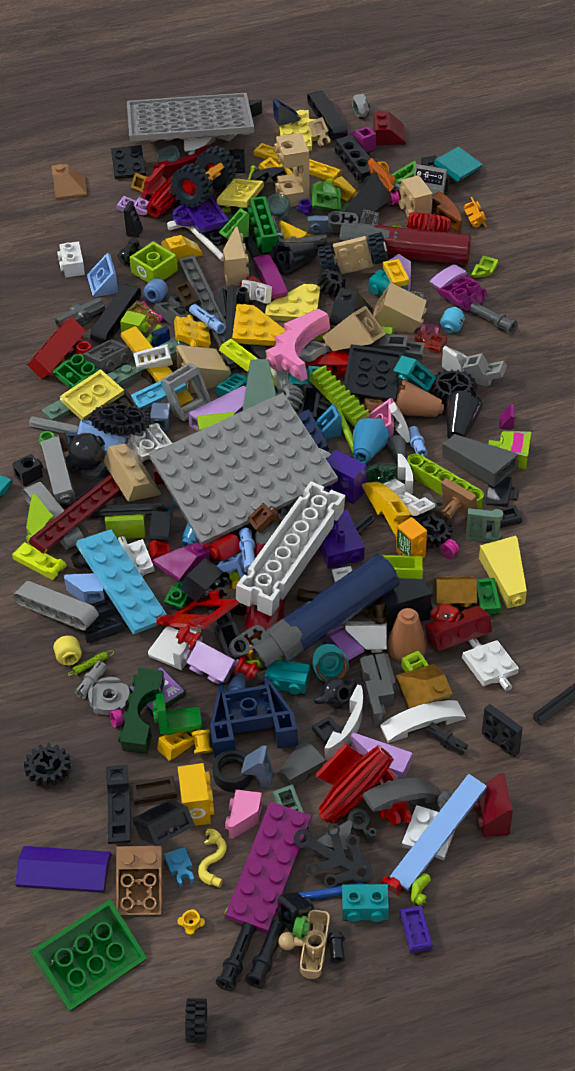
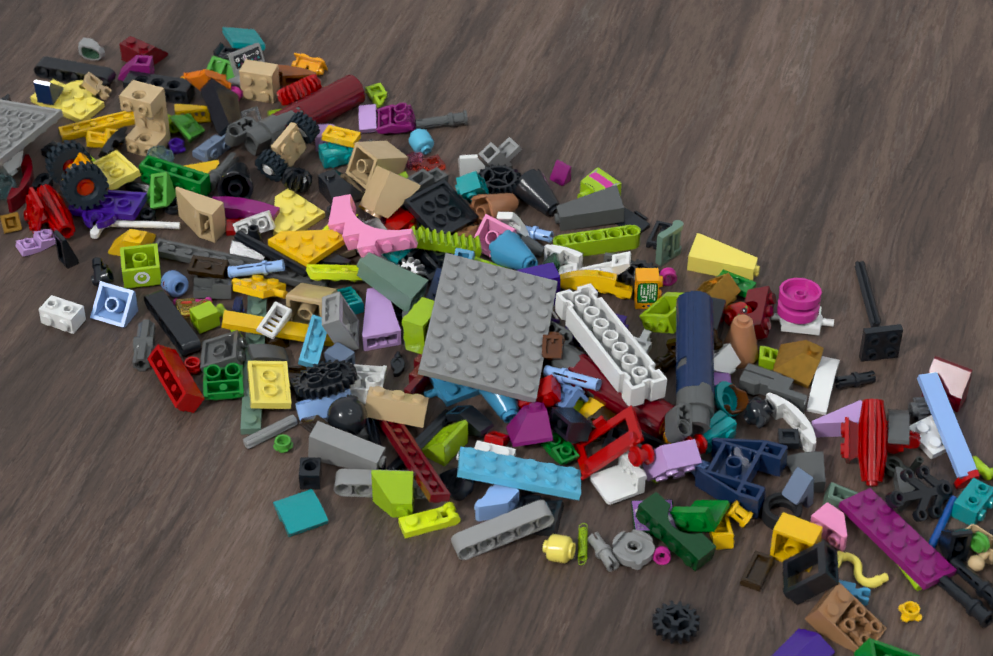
camera: 55 degrees left, 5 degrees down
(118, 804) = (757, 600): black slope -> none
(126, 376) = (267, 352): none -> dark grey slope
(456, 499) = (631, 239): medium nougat tile -> none
(490, 644) = (799, 300): none -> dark pink wheel

